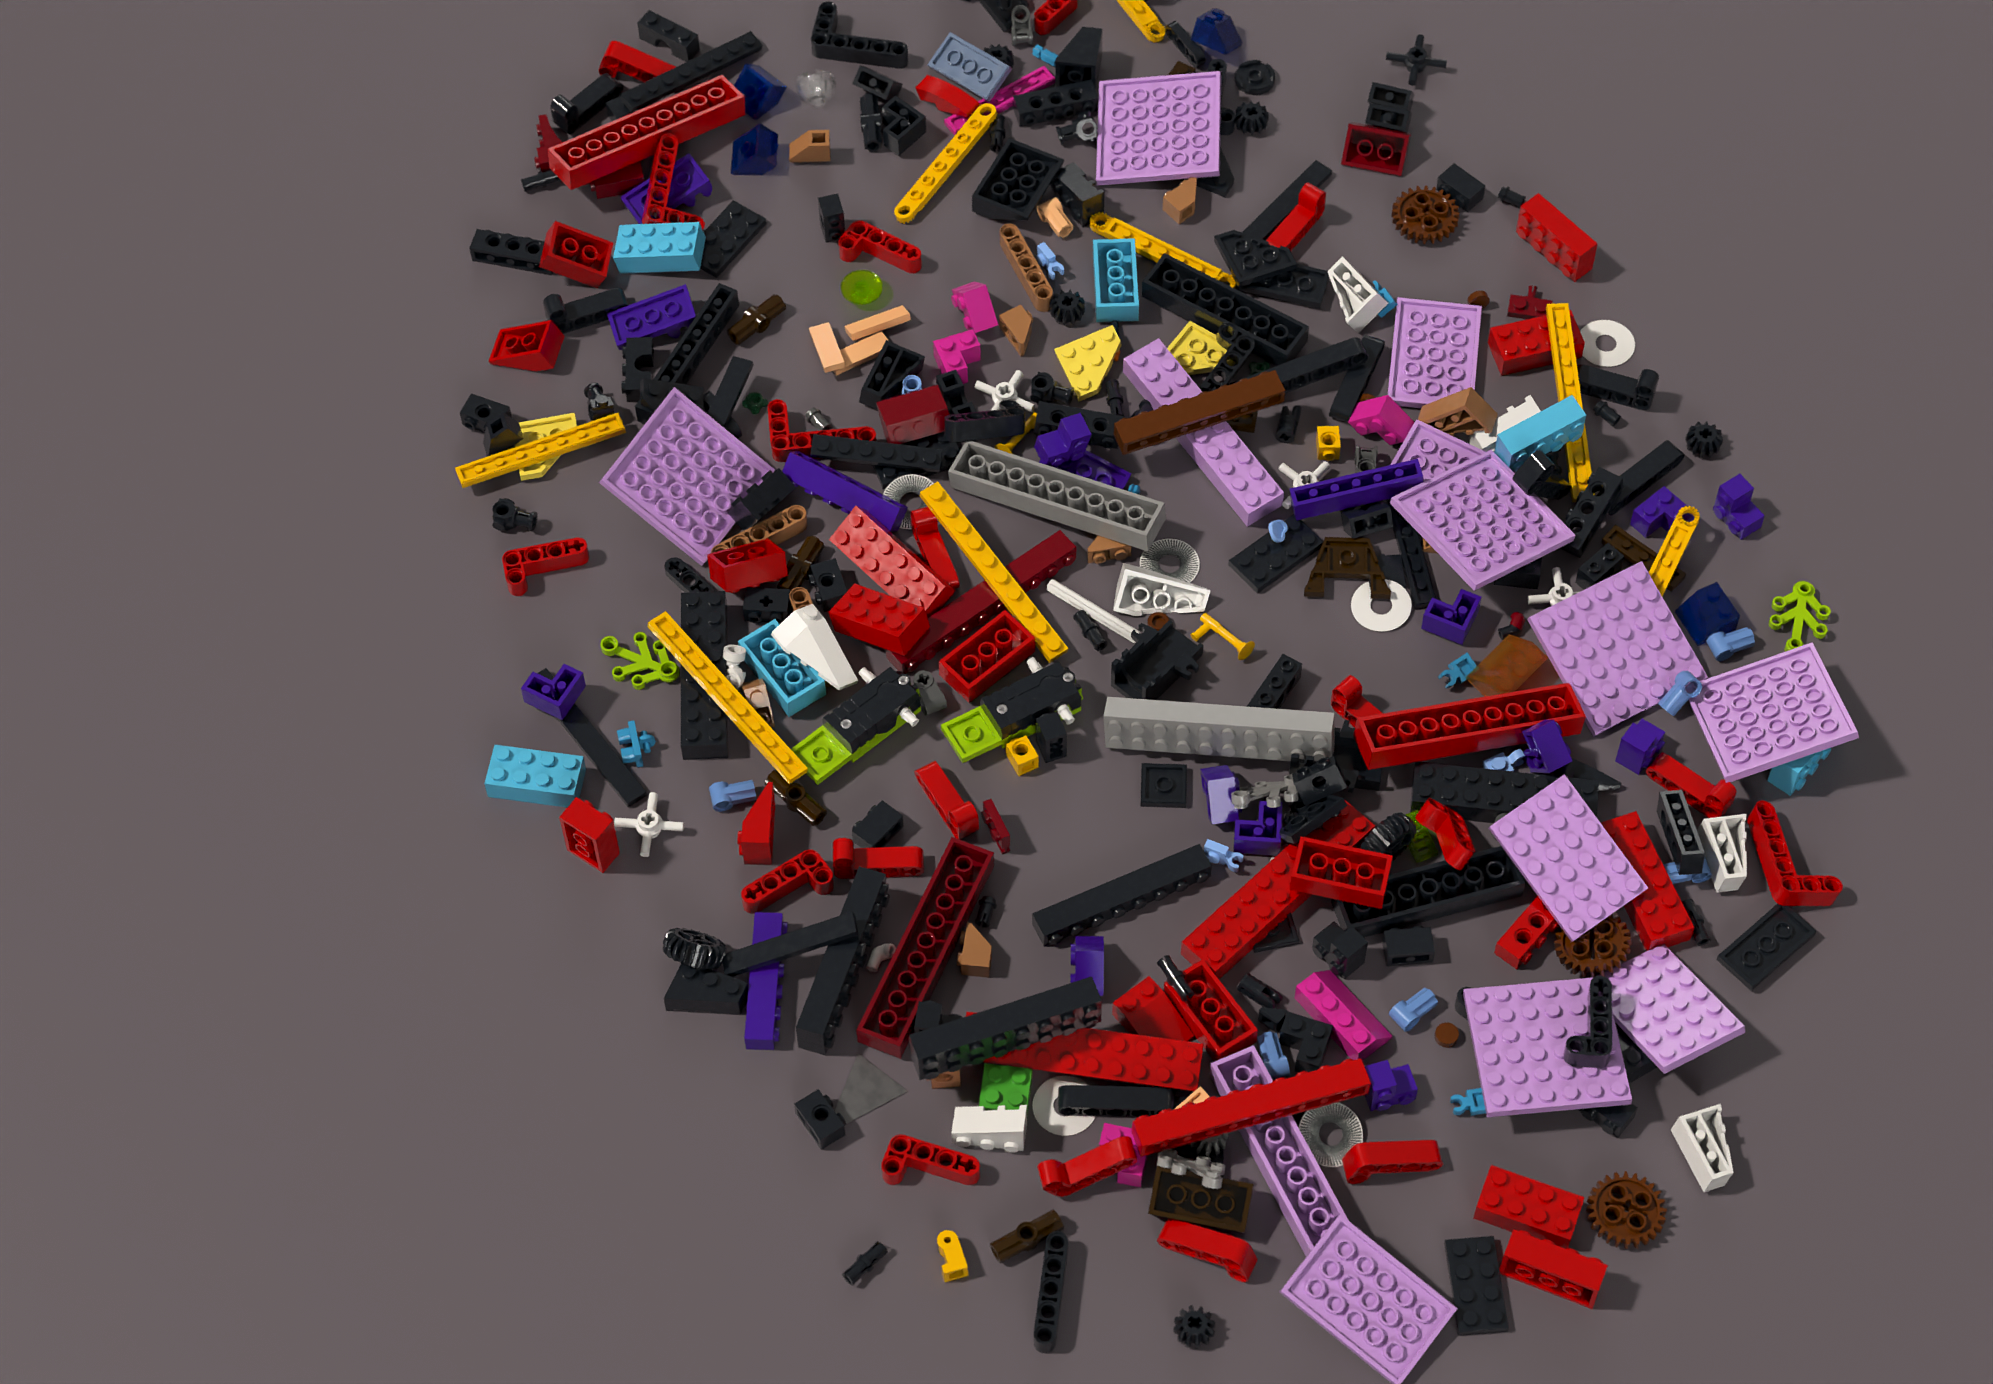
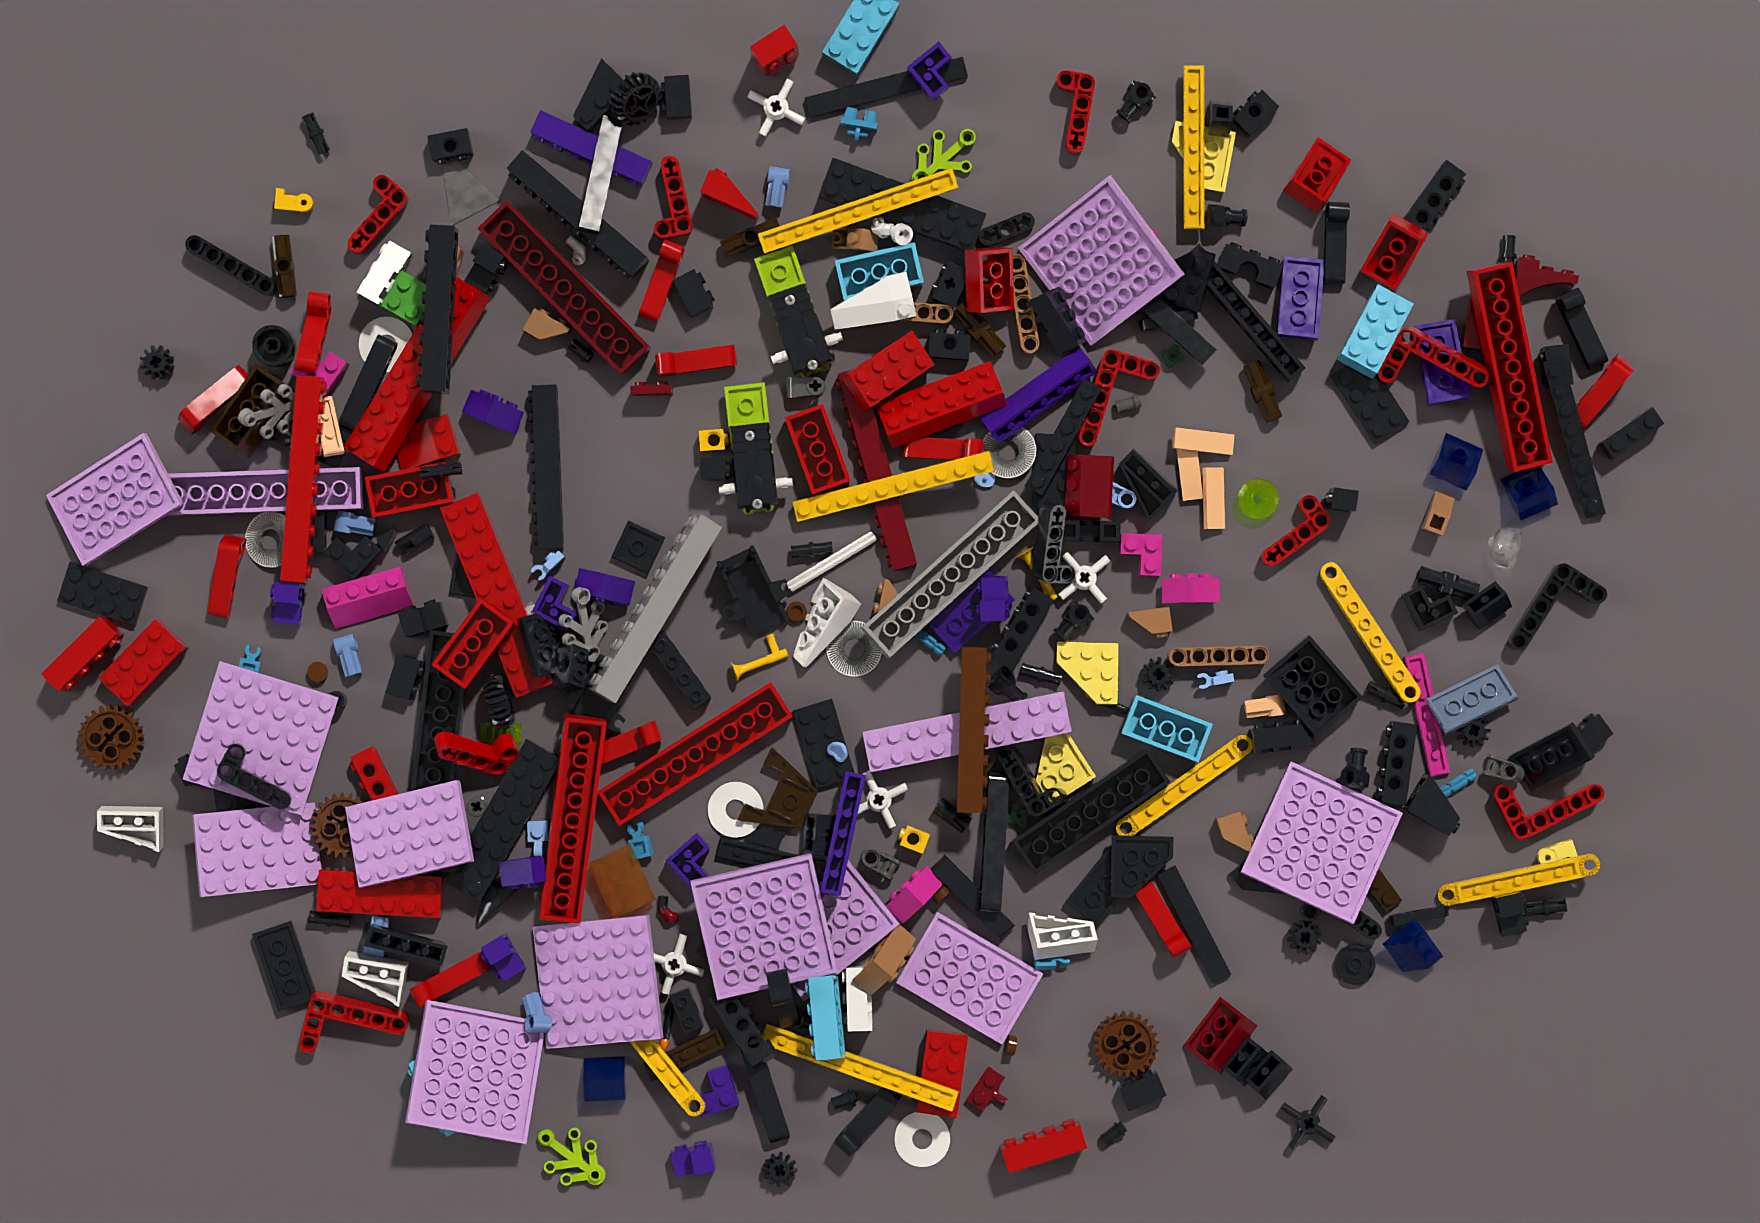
camera: 110 degrees right, 30 degrees up
(675, 914) = (677, 97): none -> black brick
(946, 96) = (1446, 664): red slope -> none
(1115, 1220) = (262, 347): none -> black brick
(1342, 647) = (695, 753): none -> red brick
(1725, 645) = (570, 1078): medium blue piece -> none

